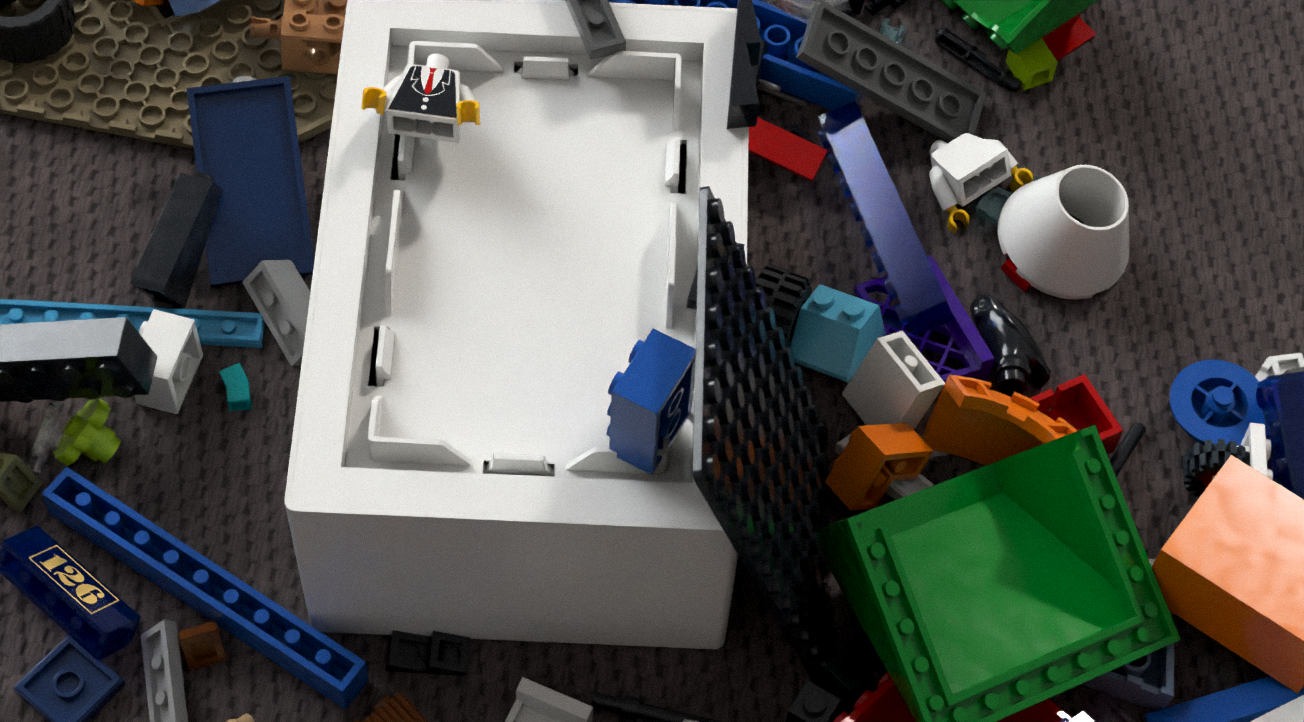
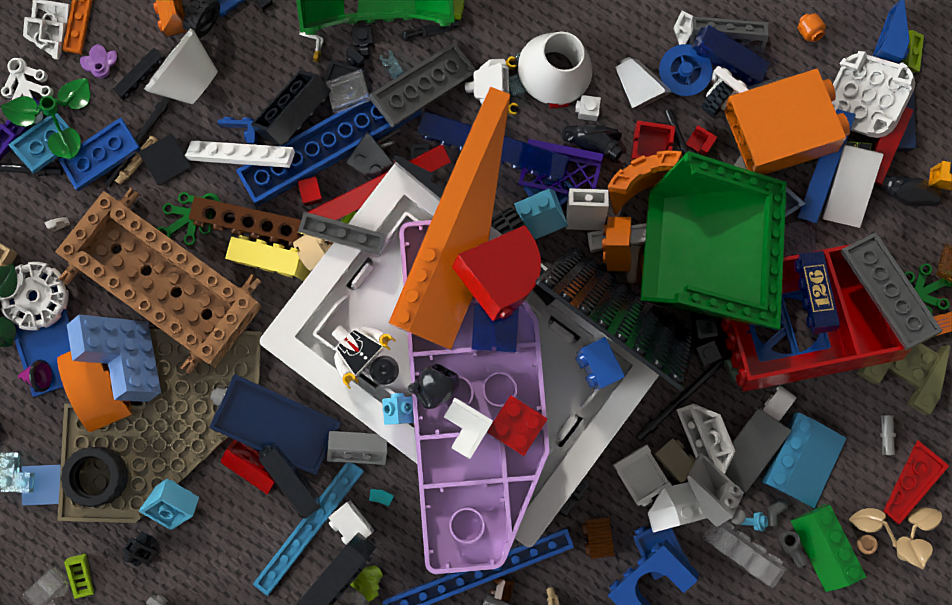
camera: 50 degrees left, 25 degrees up
(39, 121) = (169, 504): none -> medium azure slope
(160, 178) = (246, 463): none -> red panel
(376, 196) = (398, 409): none -> medium azure brick
(421, 278) = (473, 424): none -> white panel
(424, 153) = (391, 370): none -> black cone
(446, 186) = (435, 386): none -> black piece
(461, 274) = (477, 502): none -> lavender plate
(466, 335) = (517, 425): none -> red plate
(596, 212) = (497, 333): none -> clear blue piece
(675, 149) = (501, 271): none -> red brick
(688, 93) = (433, 294): none -> orange wedge
(1046, 311) = (588, 107): none -> white brick
(1142, 356) = (640, 83): none -> slope
(1142, 497) = (701, 140): none -> red panel

